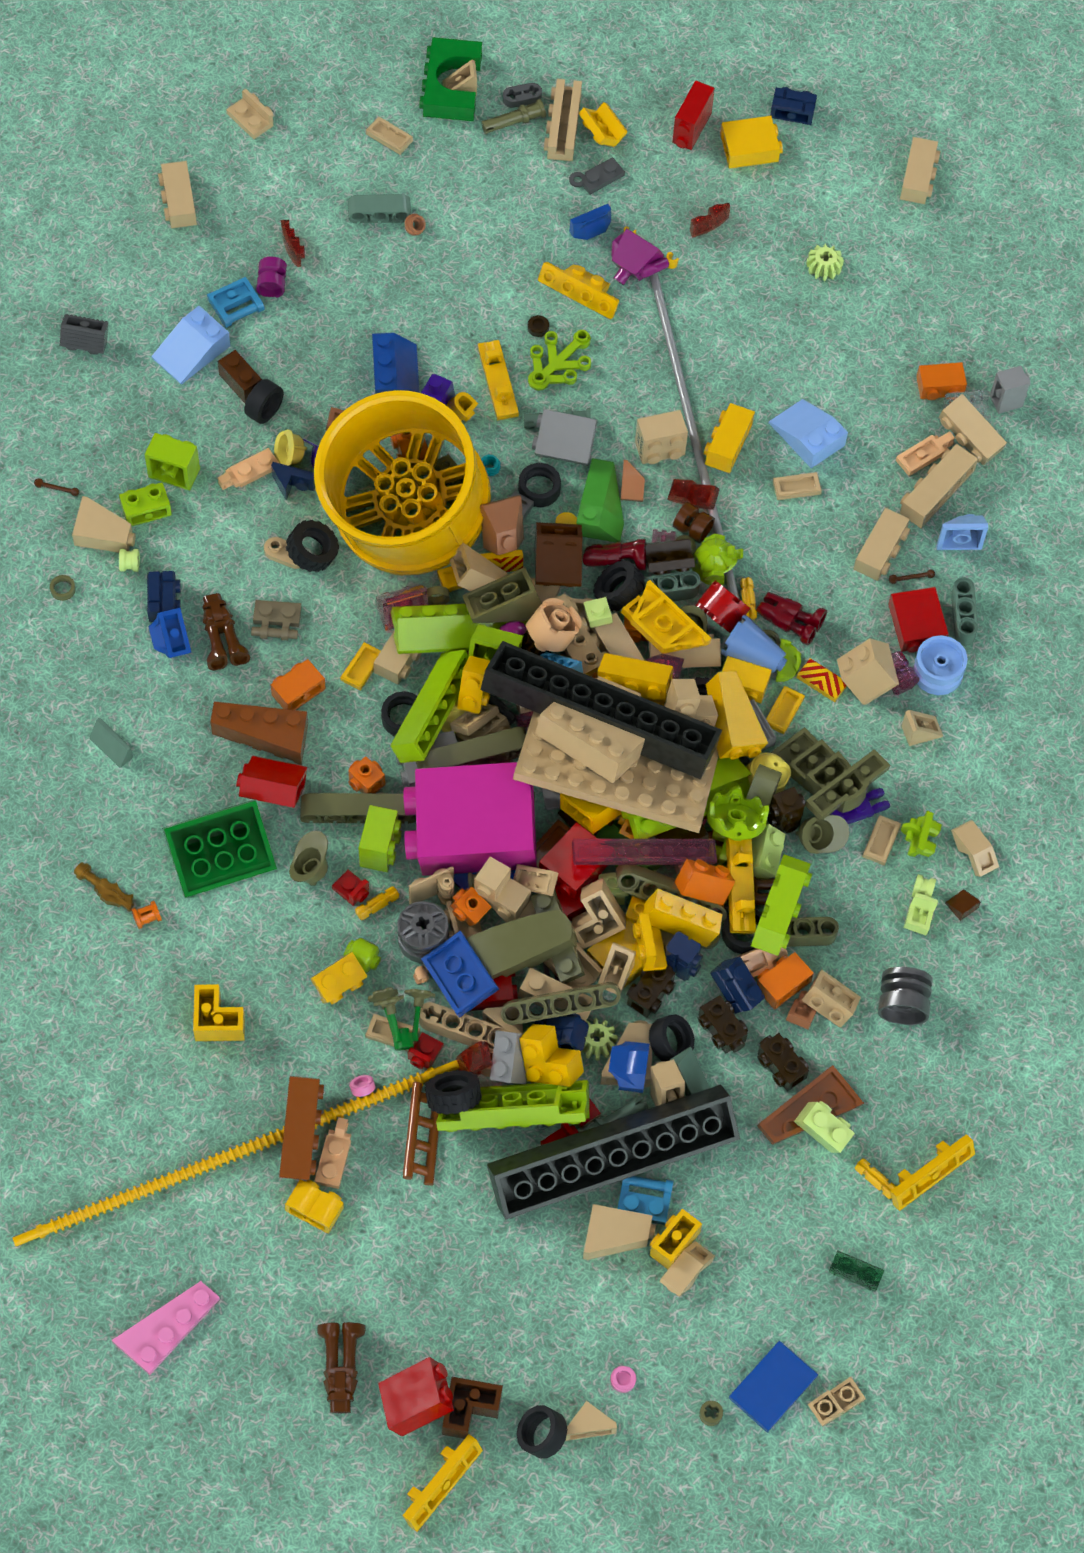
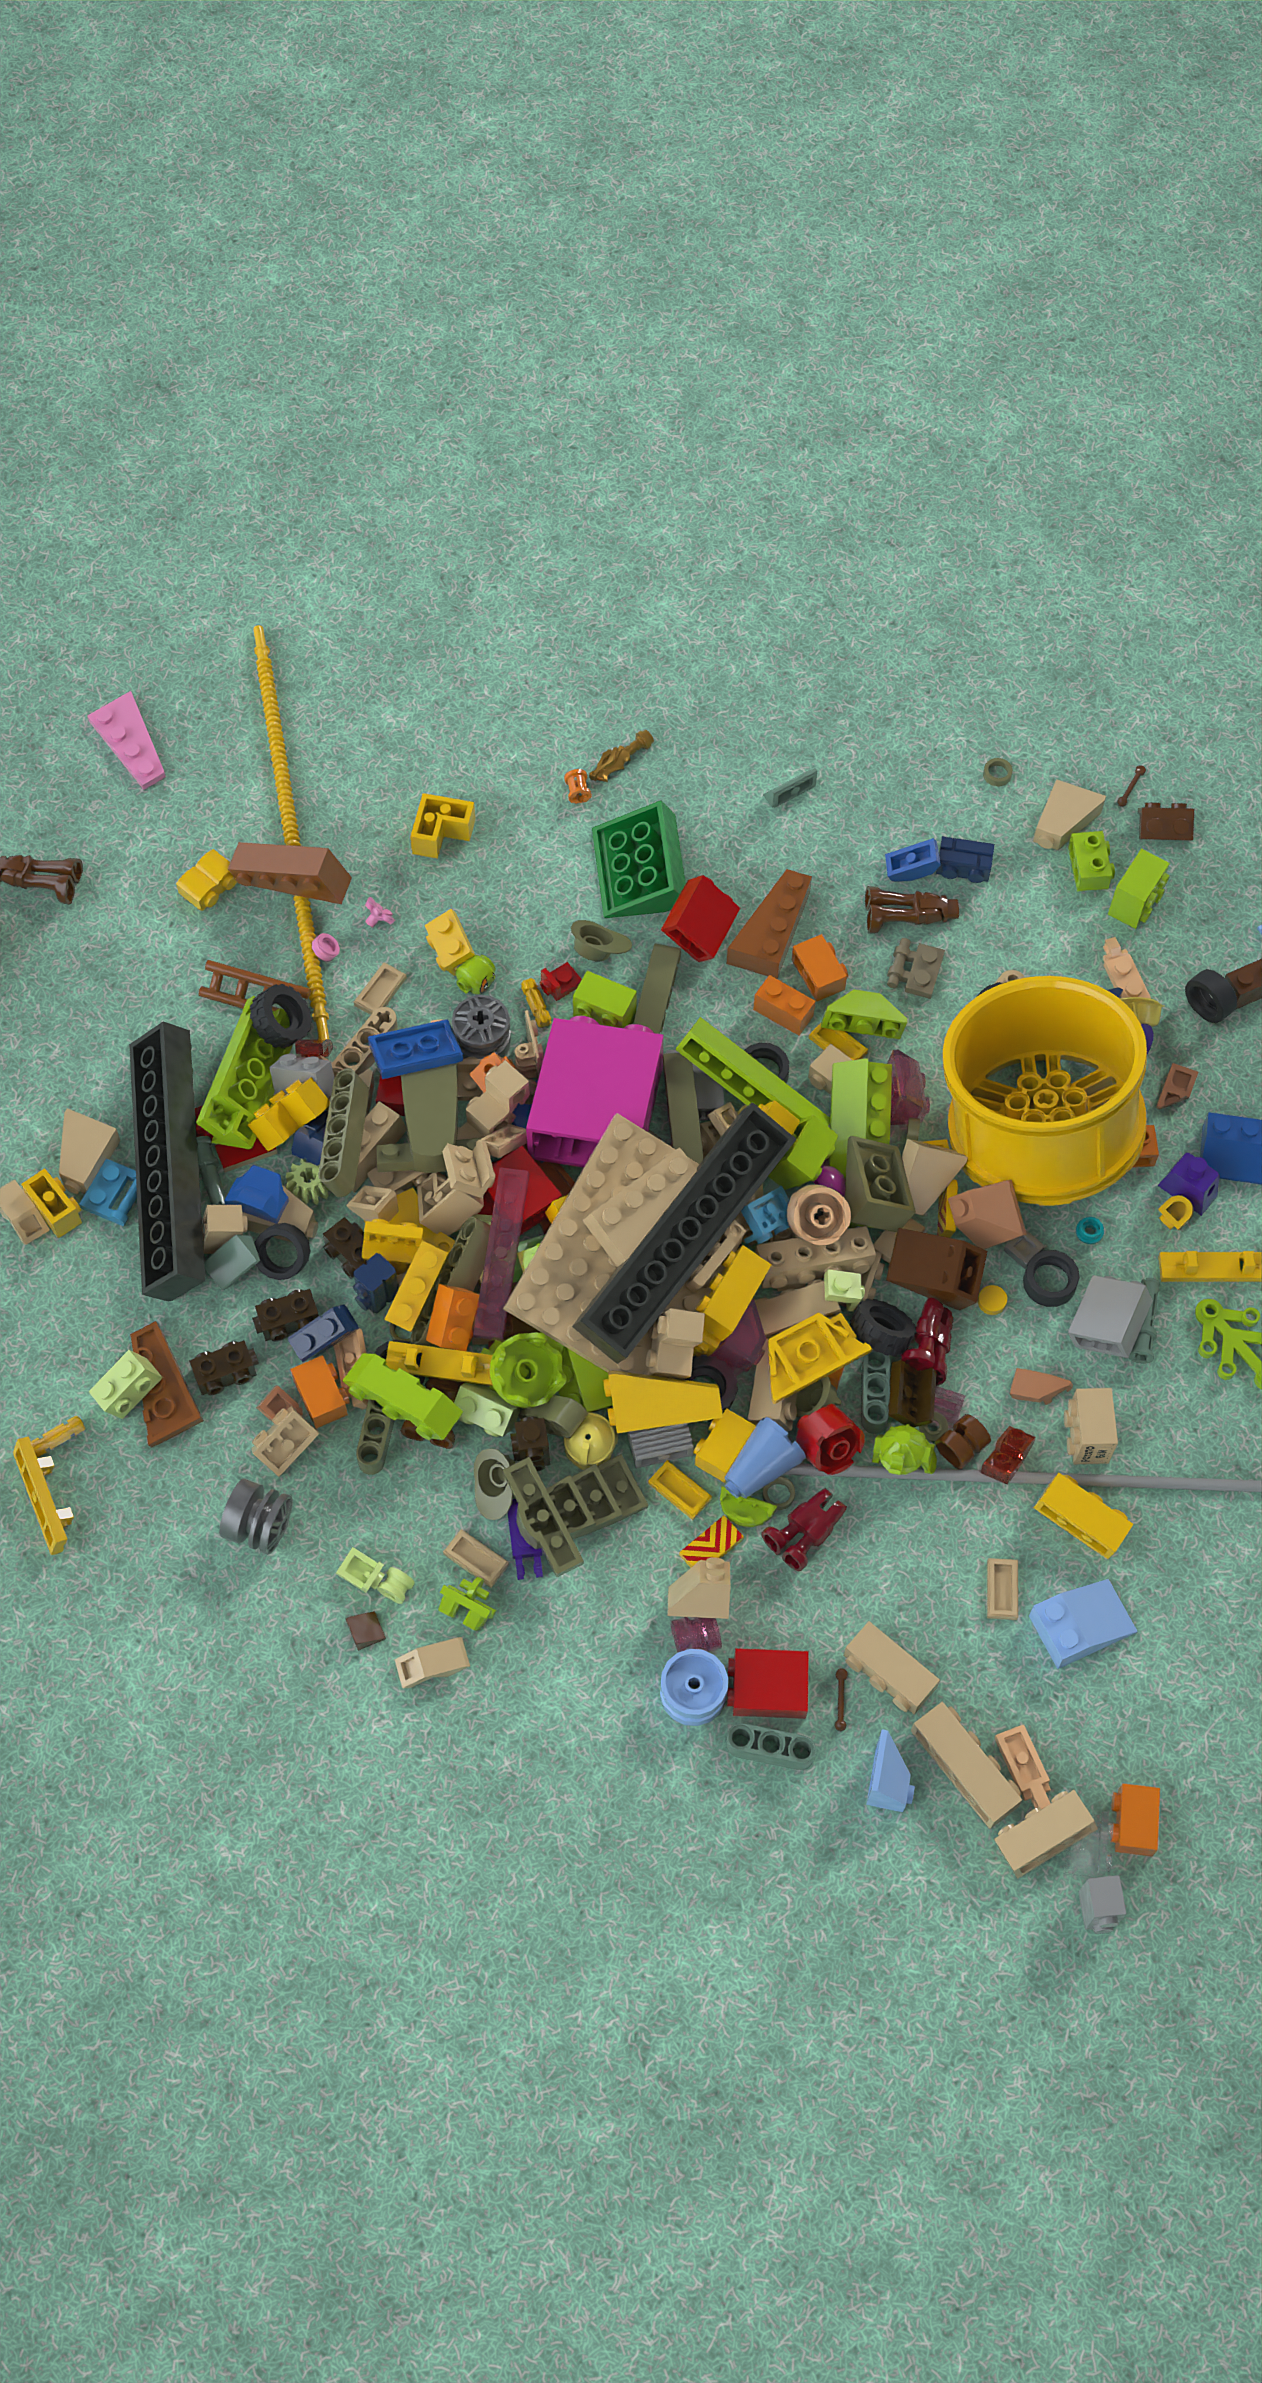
camera: 105 degrees right, 0 degrees up
(91, 455) = (1166, 823): none -> reddish brown bracket
(129, 560) = (1019, 835): yellowish green wheel -> none
(317, 1050) = (377, 913): none -> bright pink plant
(334, 1156) = (259, 911): light nougat hinge -> none
(335, 645) = (865, 1014): none -> lime slope
(340, 707) = (784, 1005): none -> orange brick
(366, 776) = (686, 1011): orange brick -> none
(387, 998) = (361, 986): plant -> none
(425, 1051) = (346, 1013): red bracket -> none
(577, 887) = (468, 1169): none -> tan bracket
(601, 505) = (1010, 1341): bright green wedge -> none
(748, 596) = (845, 1485): yellow axle -> none
(920, 727) = (614, 1644): tan slope -> none

